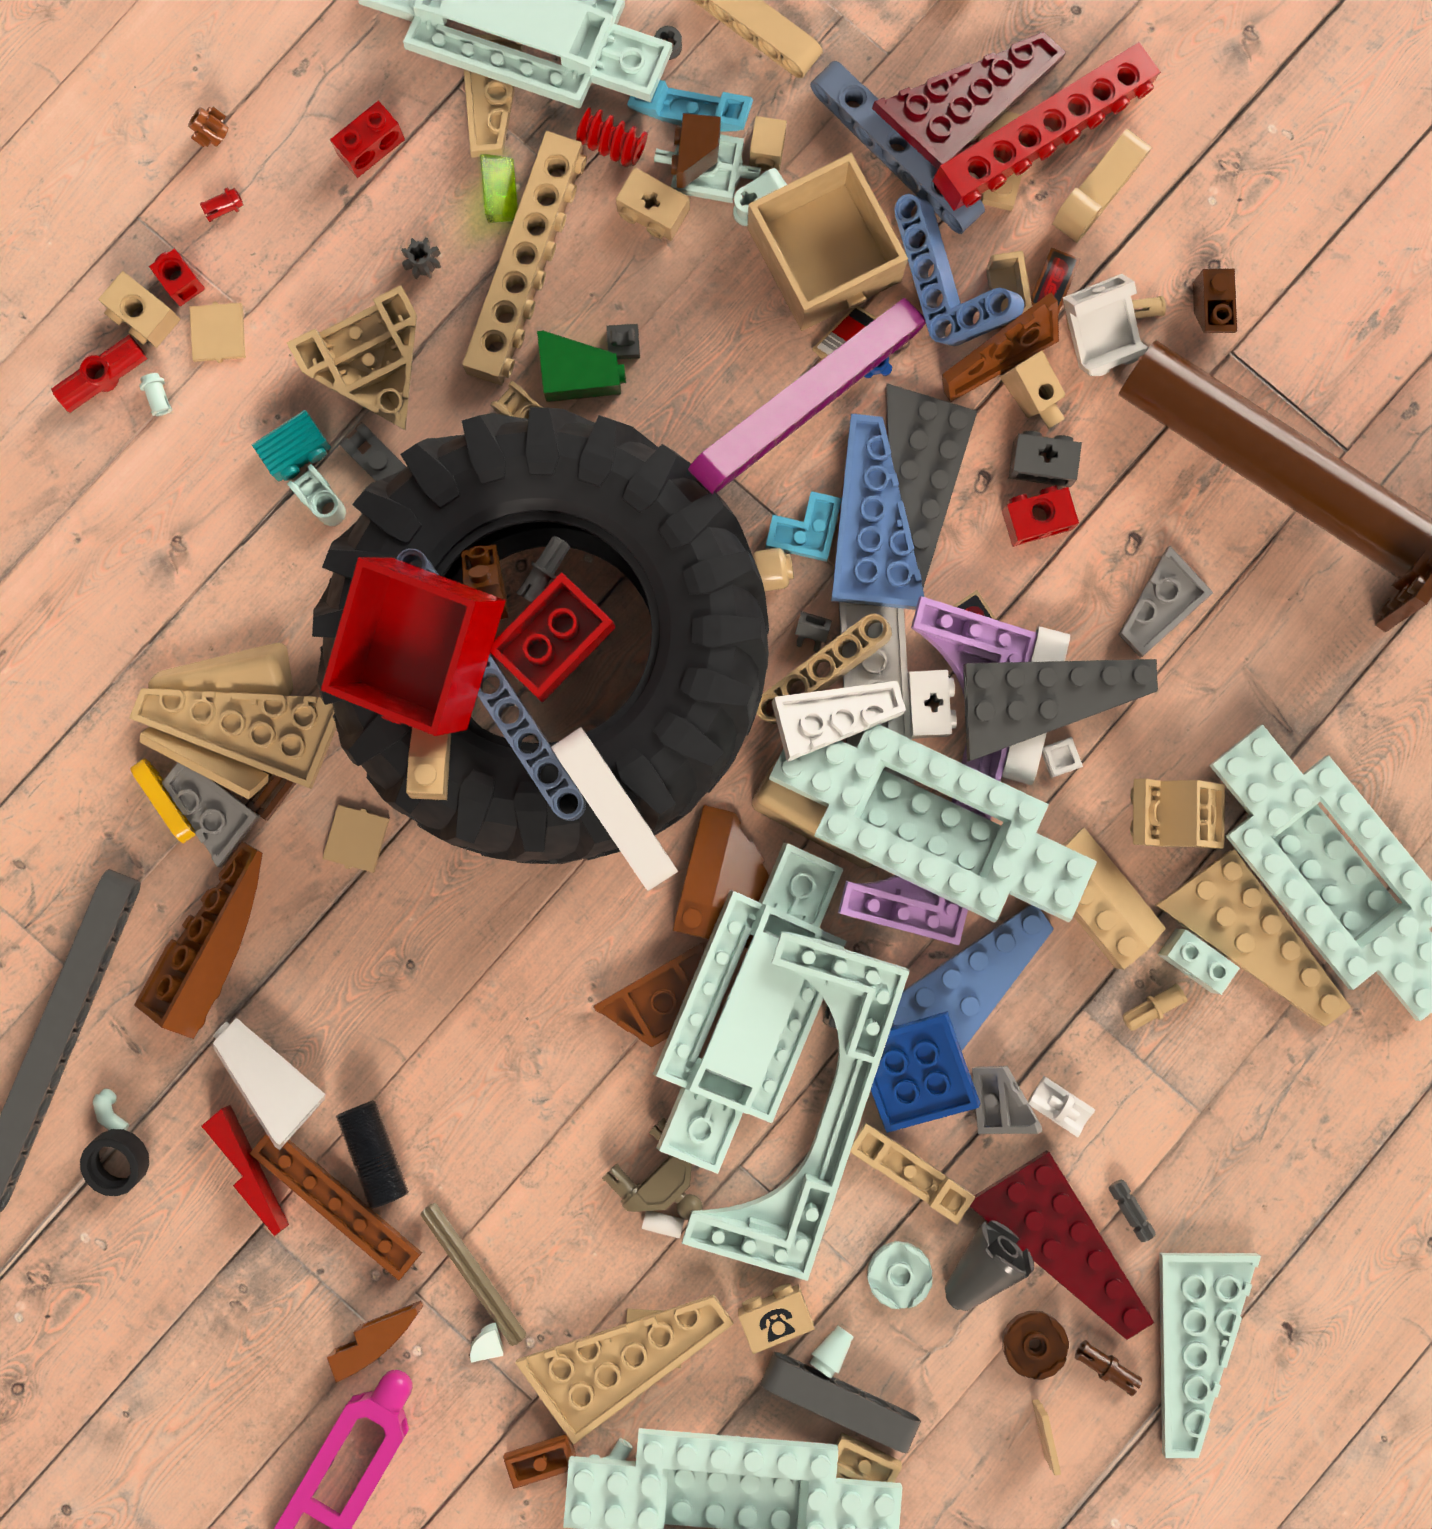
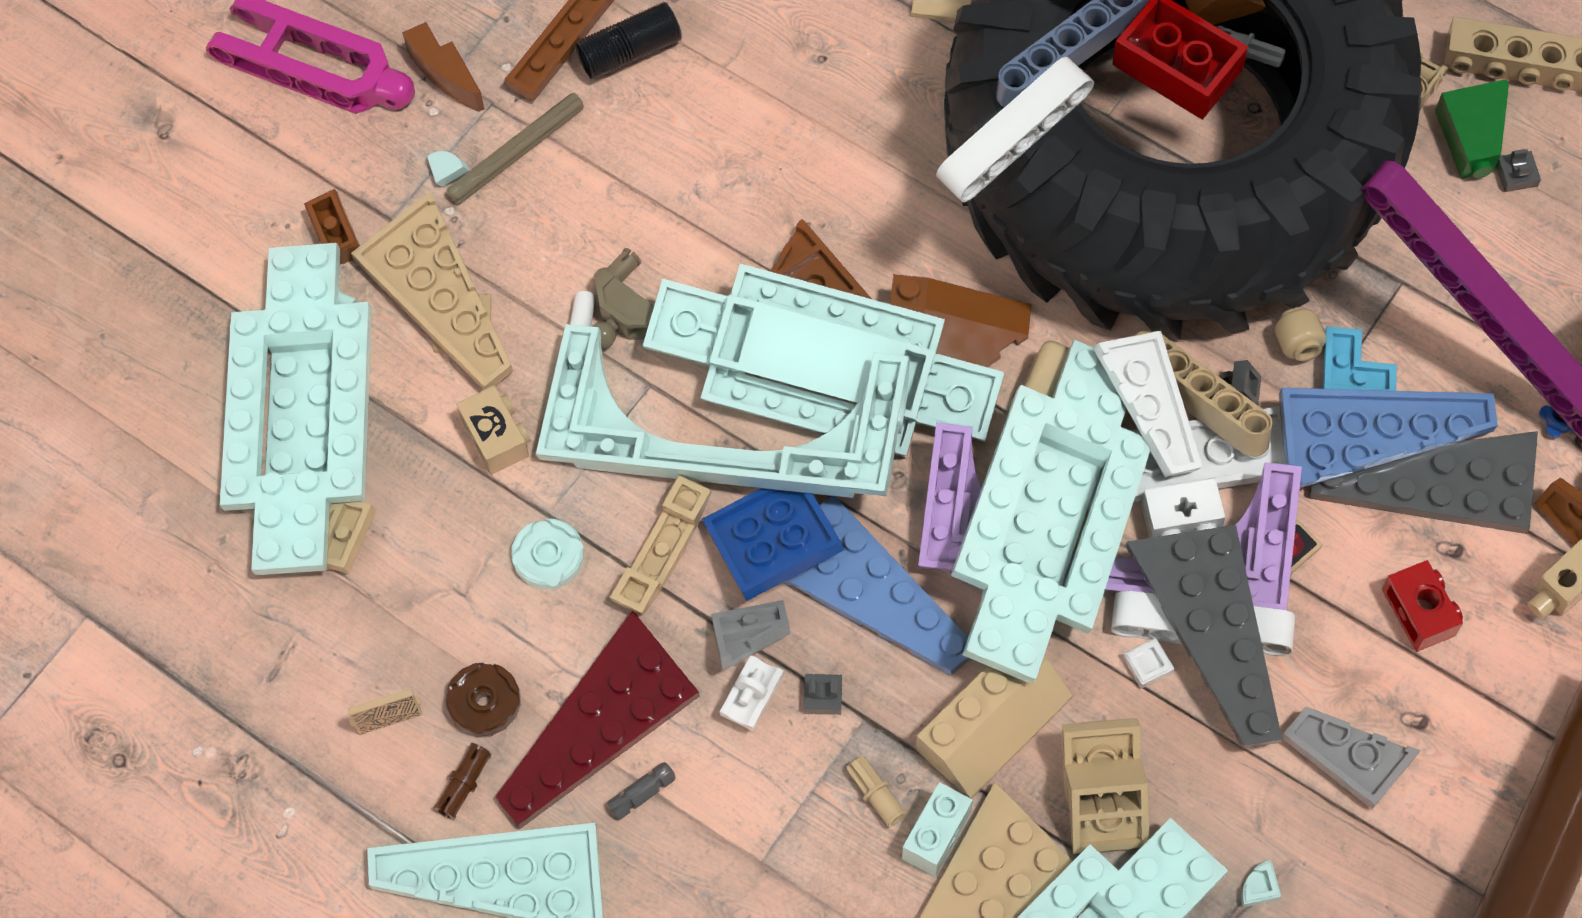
camera: 85 degrees right, 20 degrees down
(831, 1352) = (460, 490): light aqua cone -> none
(840, 1402) = (408, 505): dark grey beam -> none
(988, 1267) = (570, 629): dark grey cone -> none
(1029, 466) = (1482, 590): dark grey brick -> none
(1059, 1042) = (823, 694): none -> dark grey tile
(1265, 699) = (1260, 886): none -> light aqua tile

